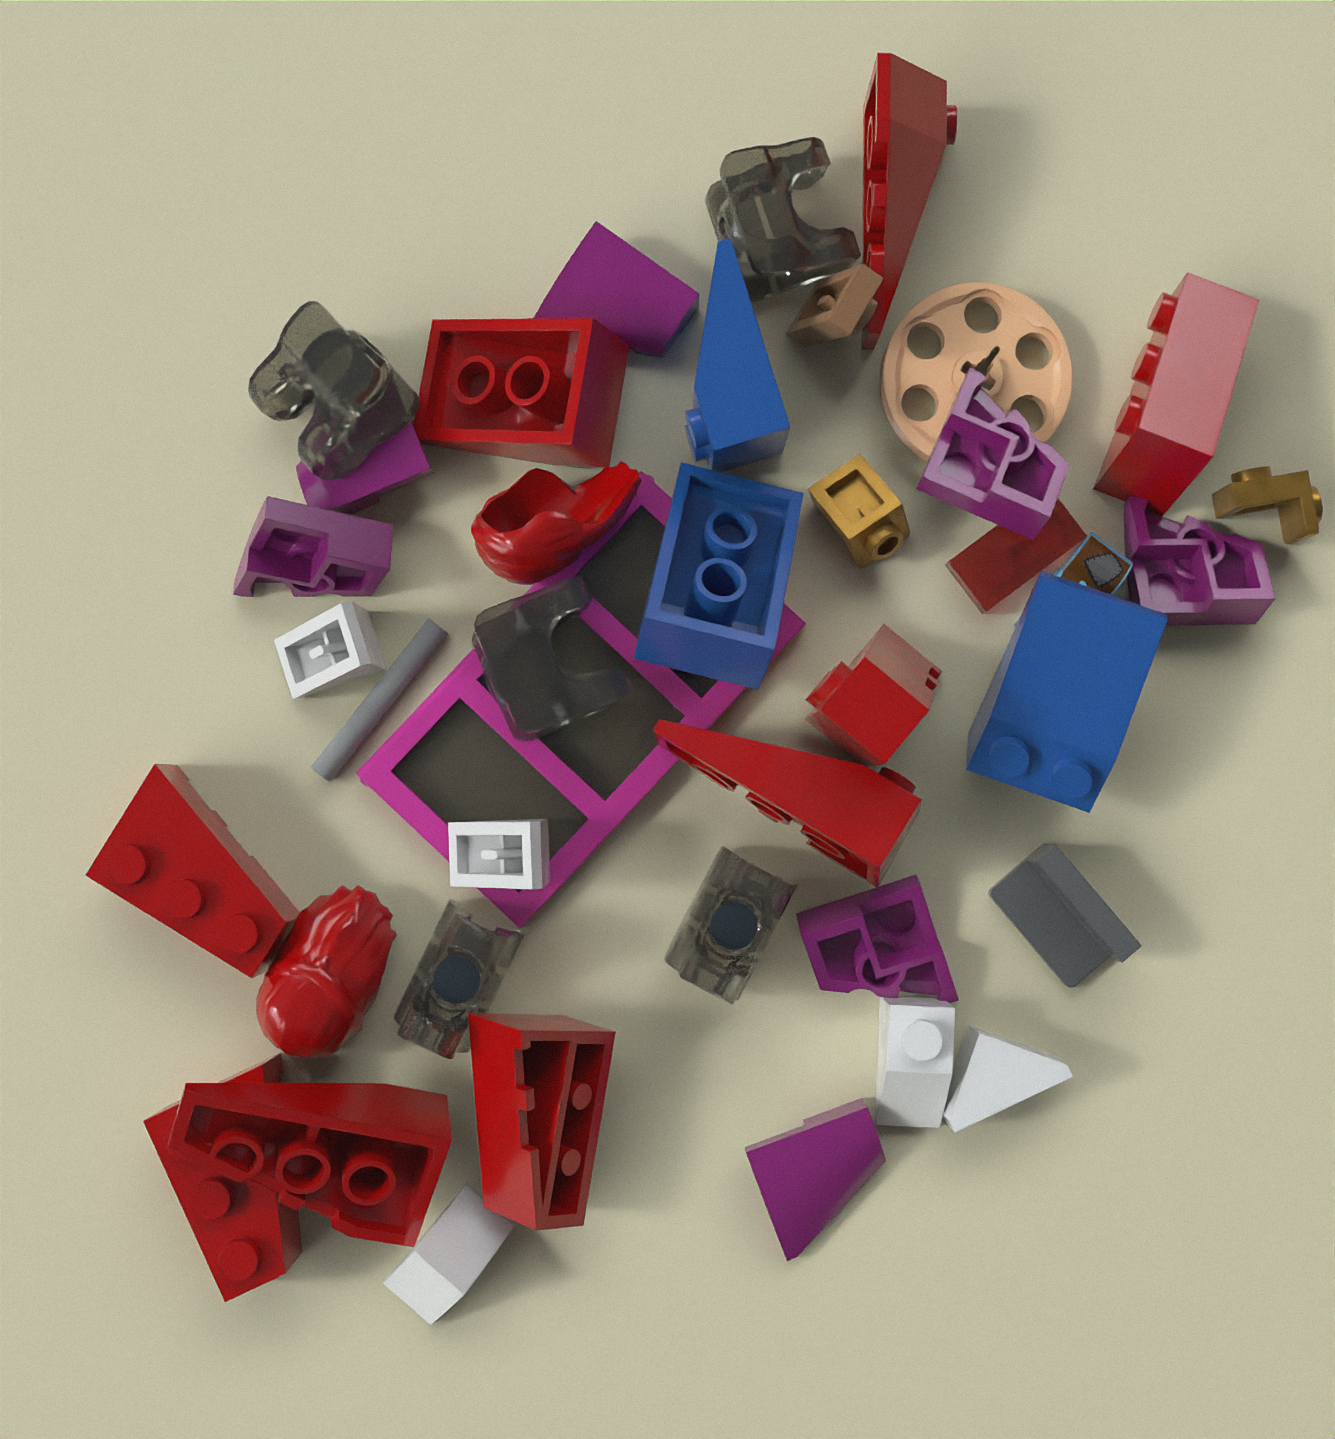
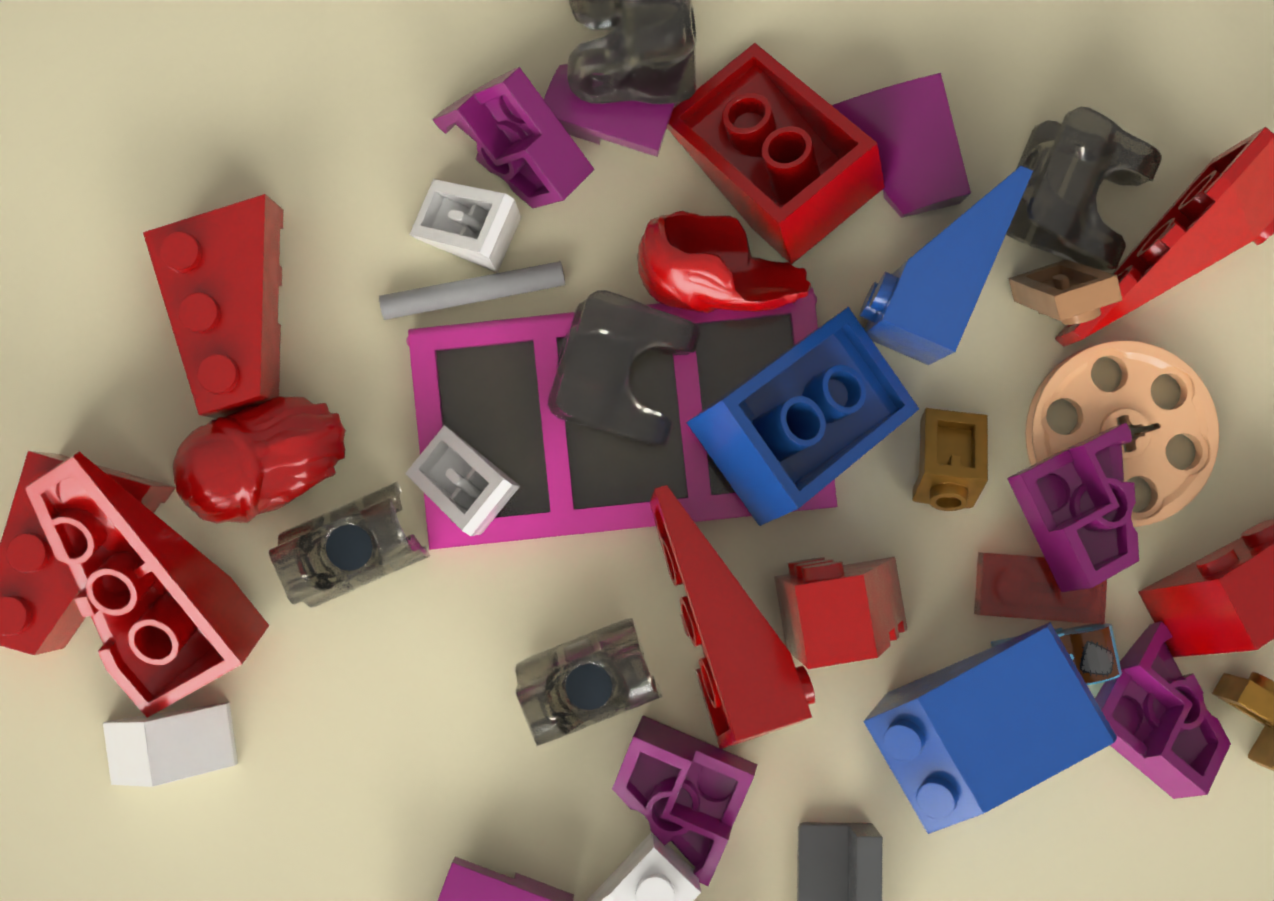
camera: 30 degrees right, 0 degrees up
(538, 1113) = (323, 699): red wedge -> none

